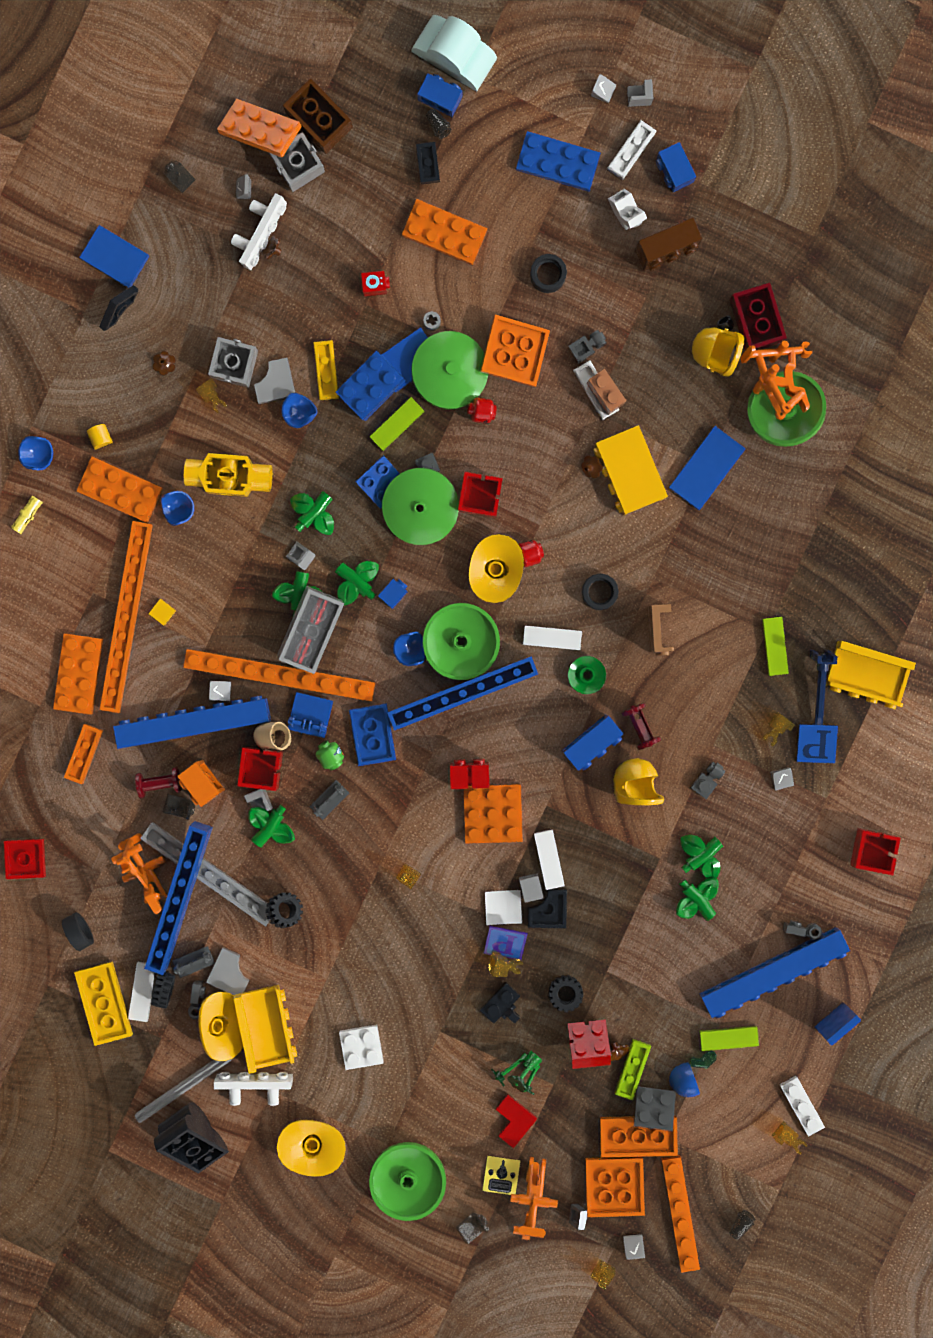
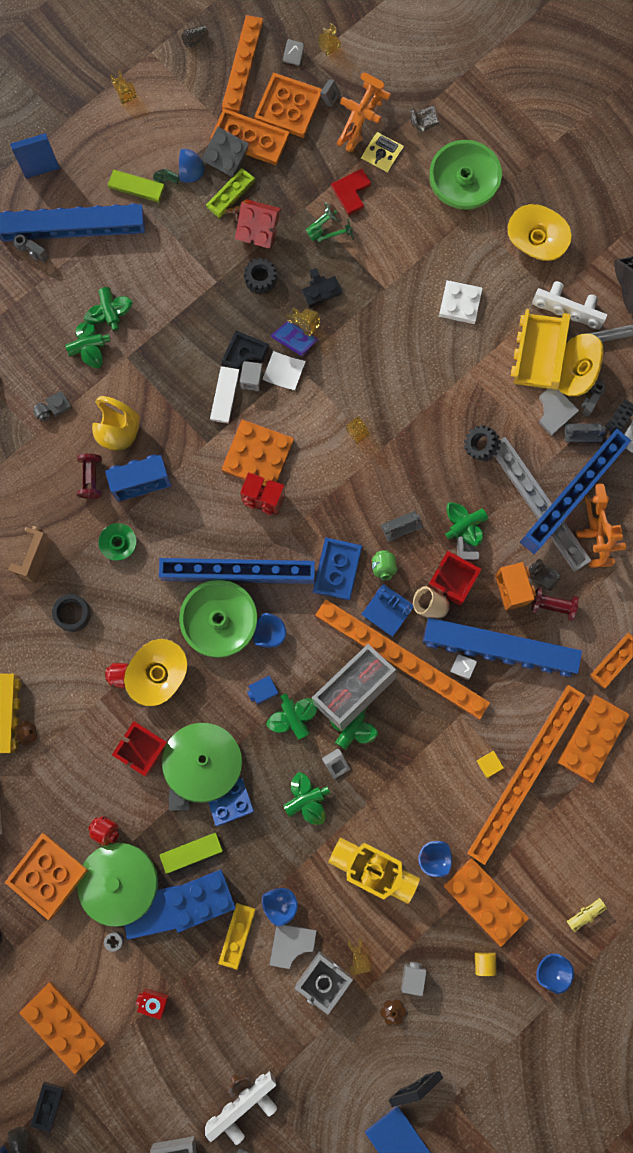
camera: 160 degrees left, 10 degrees down
(156, 397) = (413, 979): none -> light grey brick
(552, 637) = (134, 589): white tile -> none
(802, 1105) = (100, 109): white plate -> none

